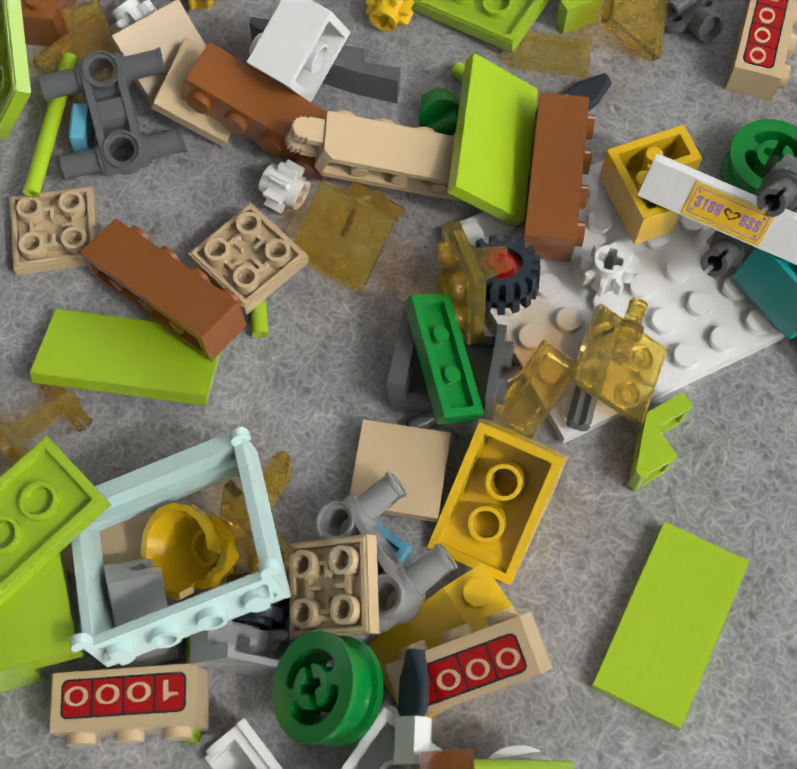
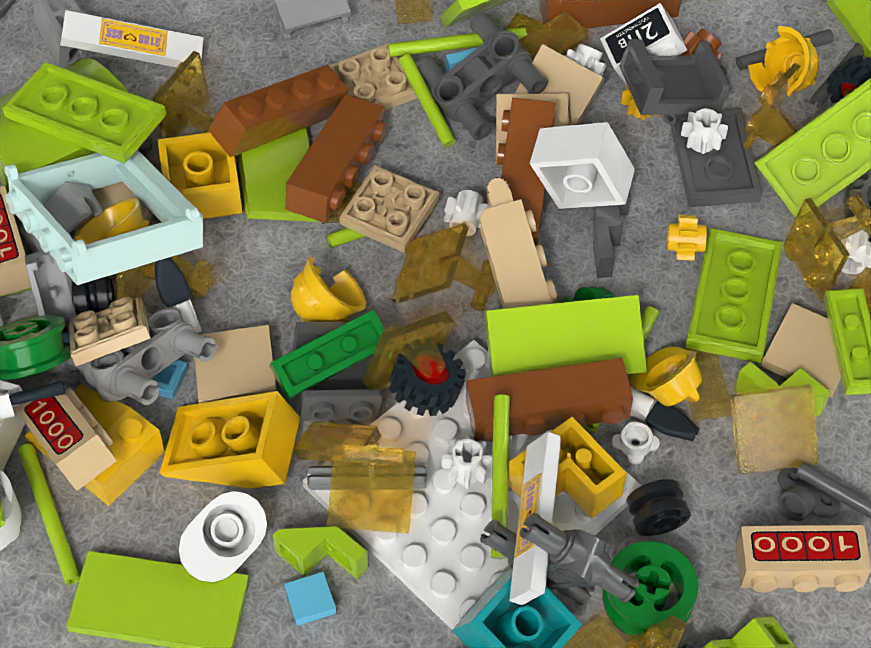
camera: 75 degrees right, 10 degrees down
(84, 324) = (277, 110): none -> dark orange brick
(113, 180) = (427, 100): none -> lime bar
(125, 430) = (202, 173): none -> yellow brick
(295, 508) = (175, 290): none -> black piece
(349, 351) = (319, 303): none -> yellow helmet
(526, 721) = (49, 514): none -> lime piece
(552, 64) = (670, 376): none -> yellow piece
(610, 122) = (639, 432): none -> white plate
(622, 532) = (222, 536): none -> white piece
(635, 239) = (500, 463): none -> lime bar
(697, 121) = (658, 507): none -> black wheel
(701, 469) = (310, 598): none -> medium azure tile

